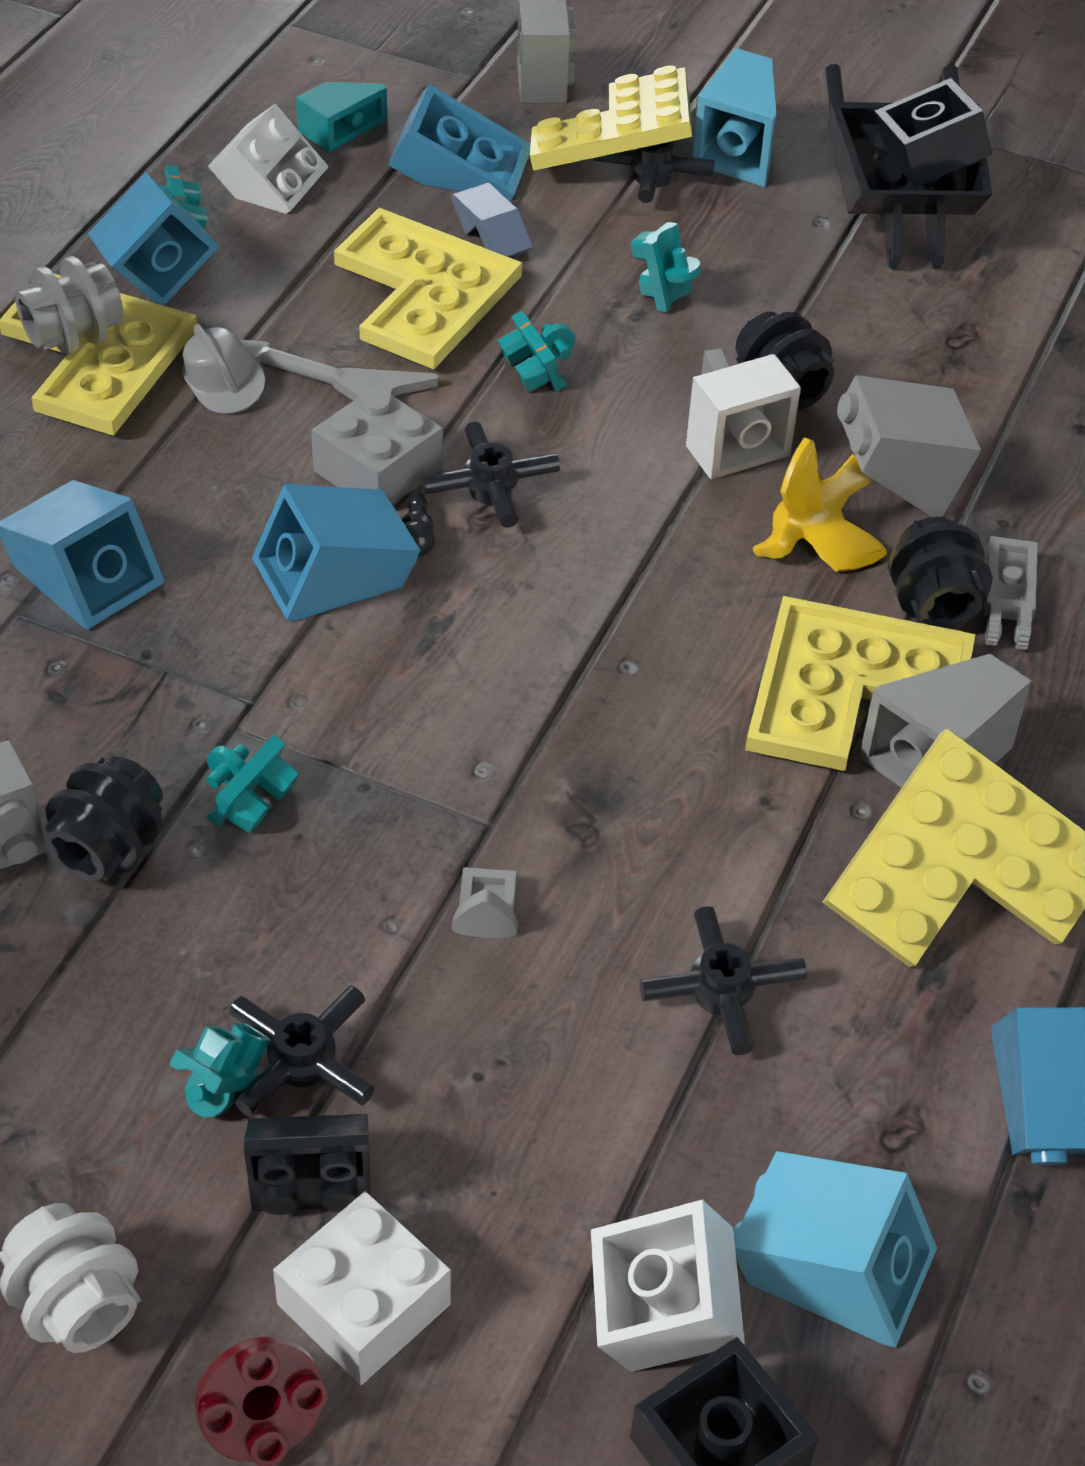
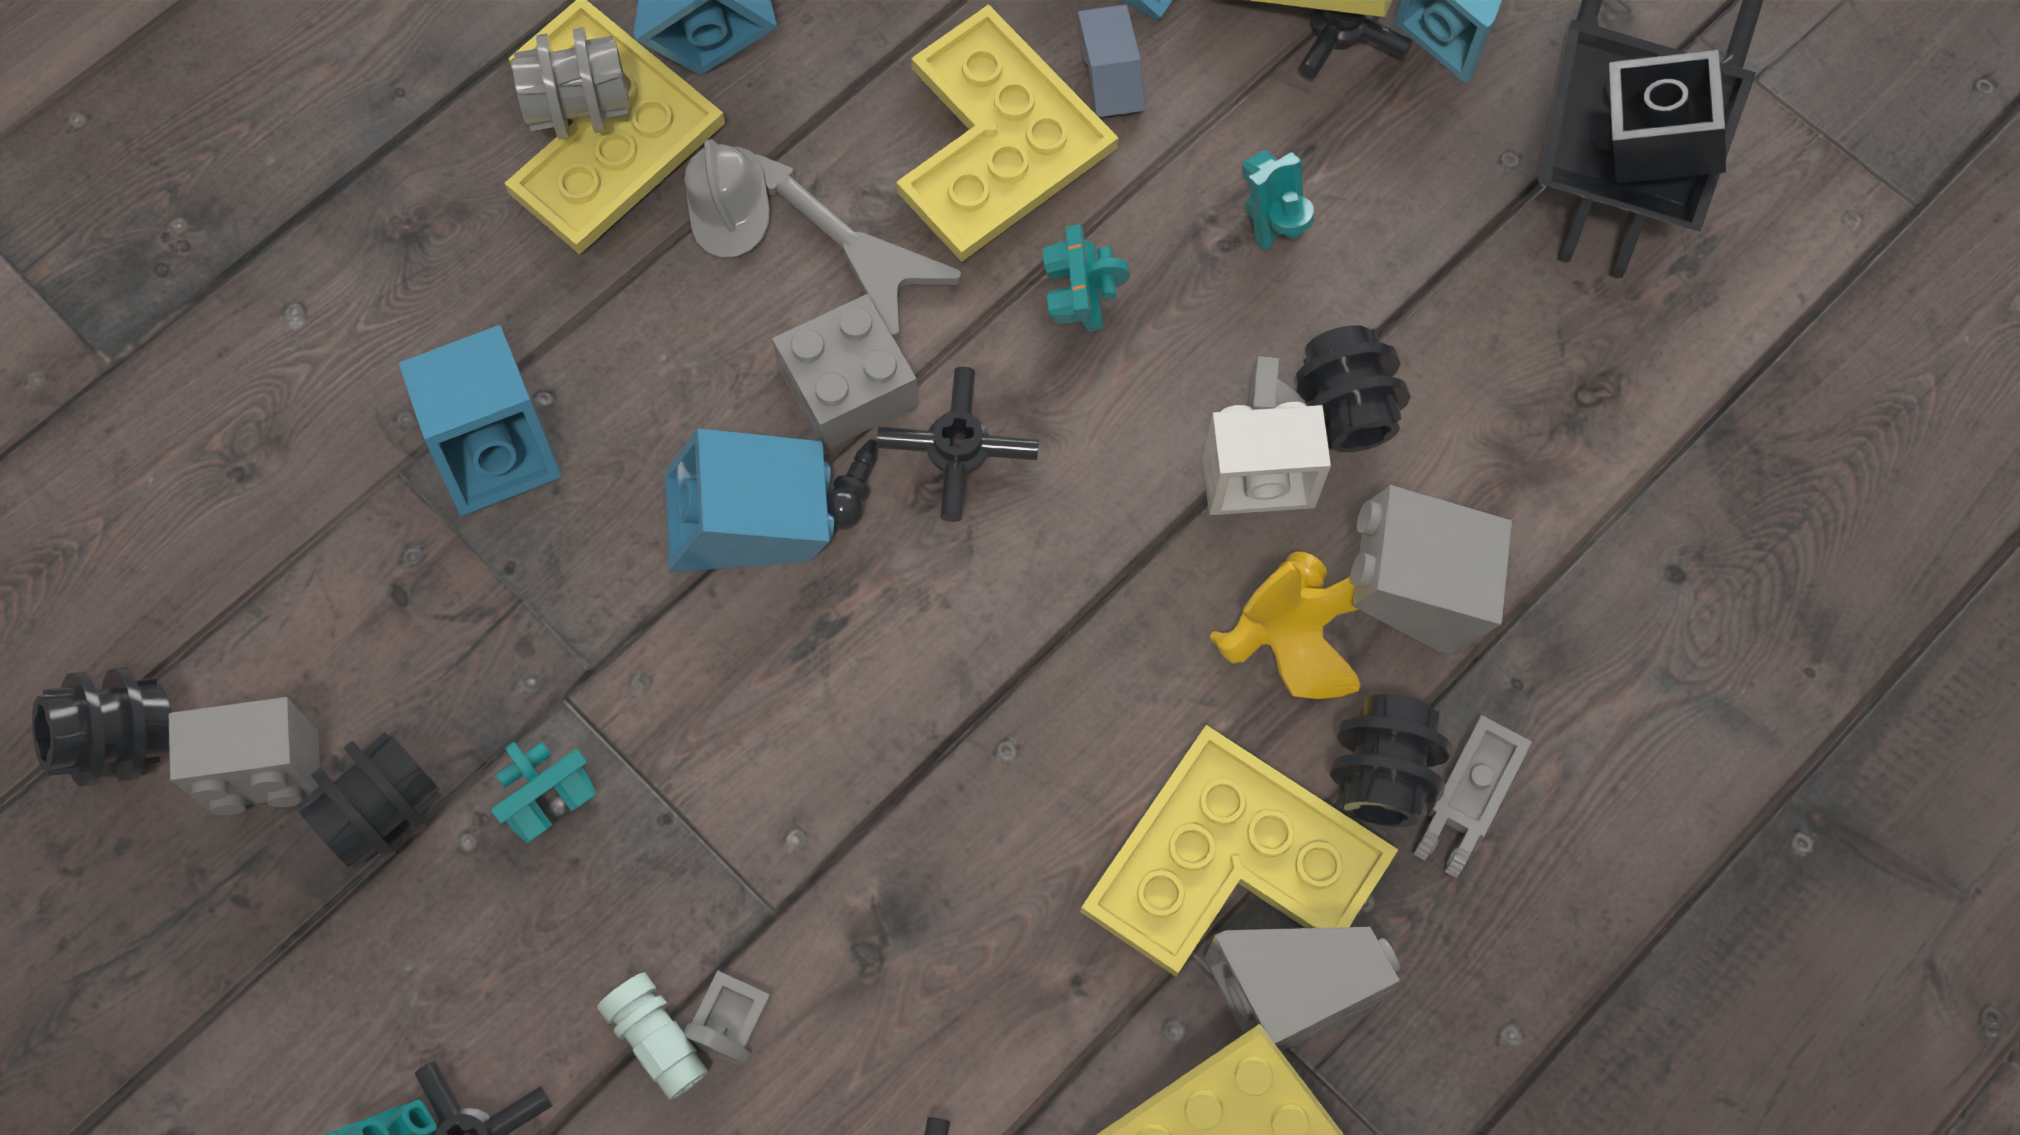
camera: 20 degrees right, 20 degrees up
(432, 926) = (653, 1035): none -> light aqua axle

